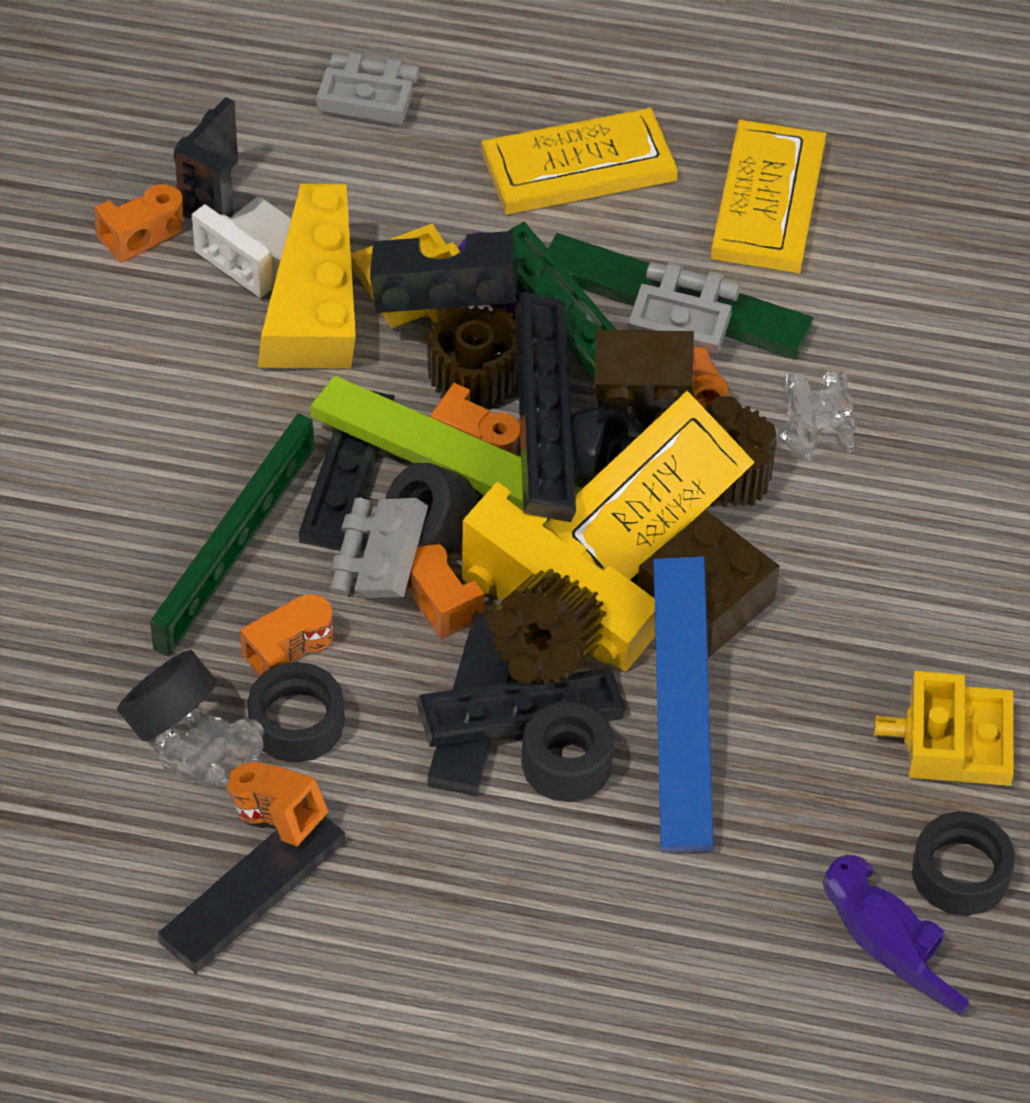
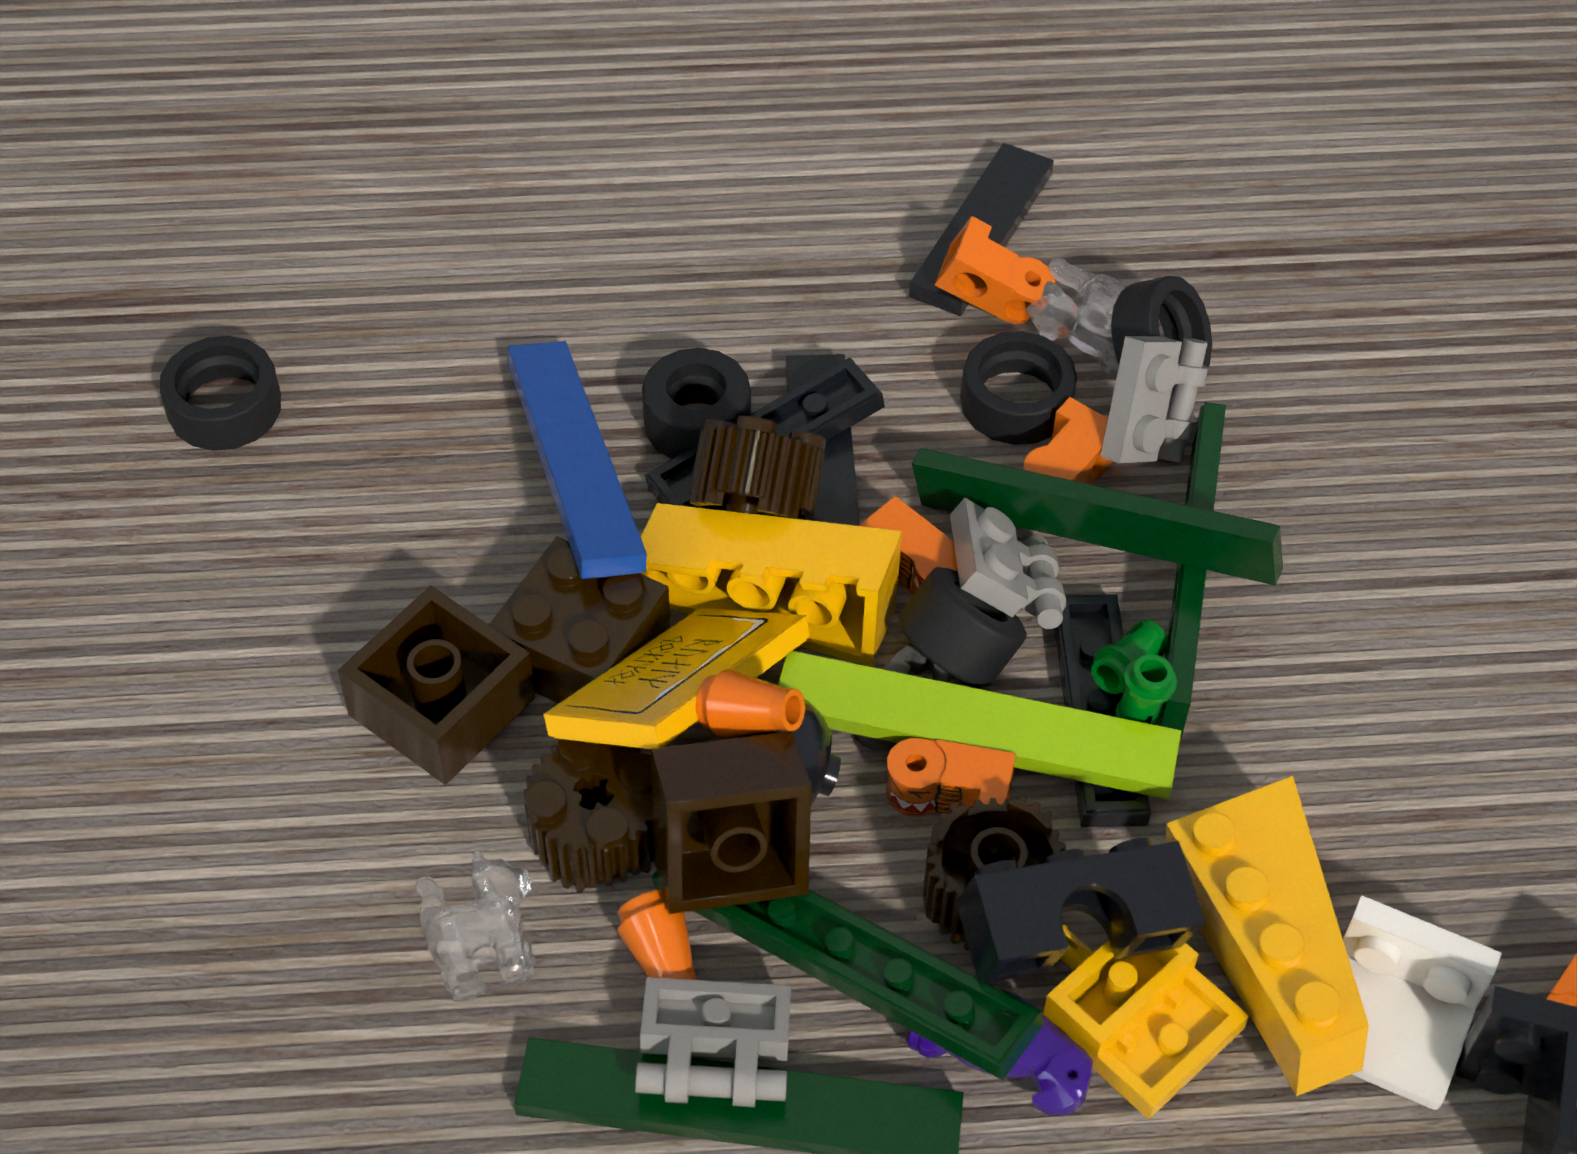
camera: 165 degrees right, 0 degrees up
(211, 620) = (1142, 394): none -> light grey plate
(302, 549) = (1104, 516): none -> dark green tile
(320, 466) = (1112, 660): none -> green pin
(324, 420) = (1147, 685): none -> green pin
(544, 408) = (861, 753): black tile -> none
(616, 413) = (744, 705): none -> orange cone
(824, 555) = (437, 684): none -> dark brown brick
(888, 929) = (298, 309): dark purple animal -> none
(955, 730) = (240, 527): yellow plate -> none

